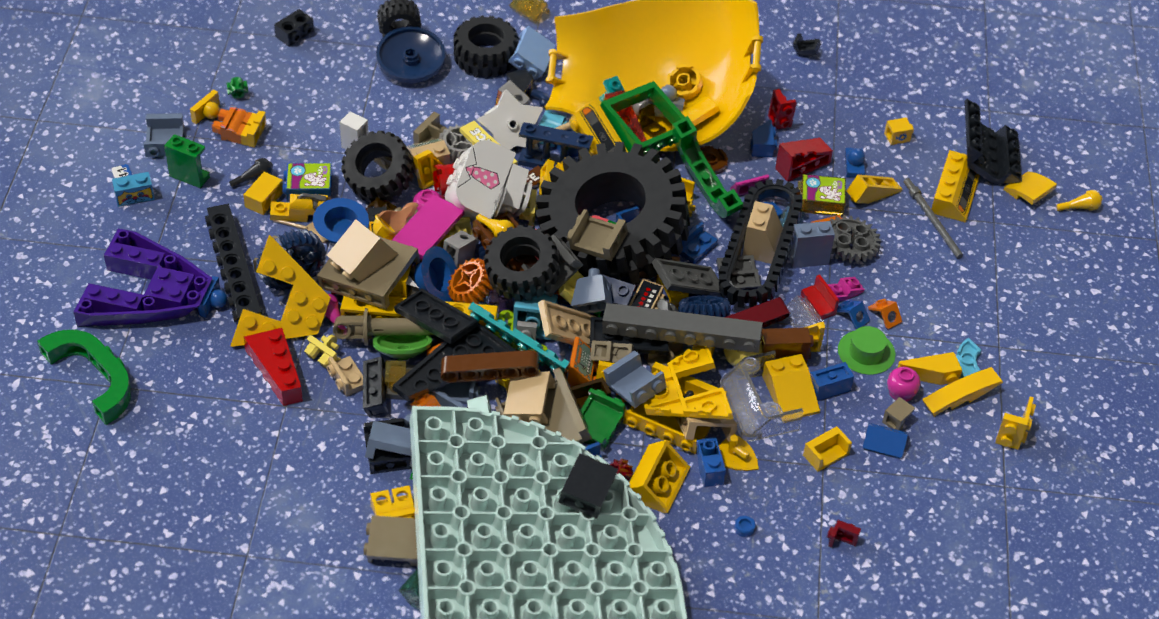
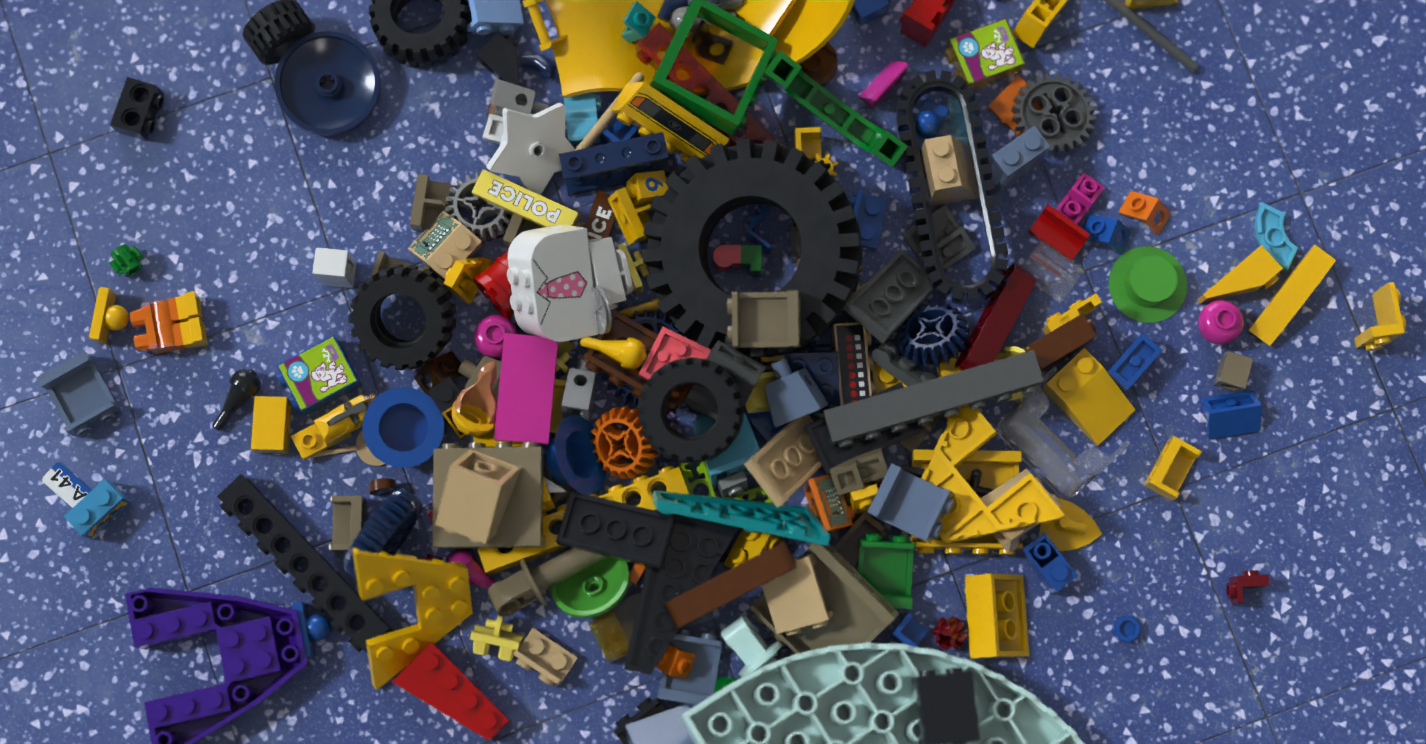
camera: 25 degrees left, 30 degrees up
(185, 161) = (143, 434): green panel -> none
(374, 386) = (591, 663): black container -> none

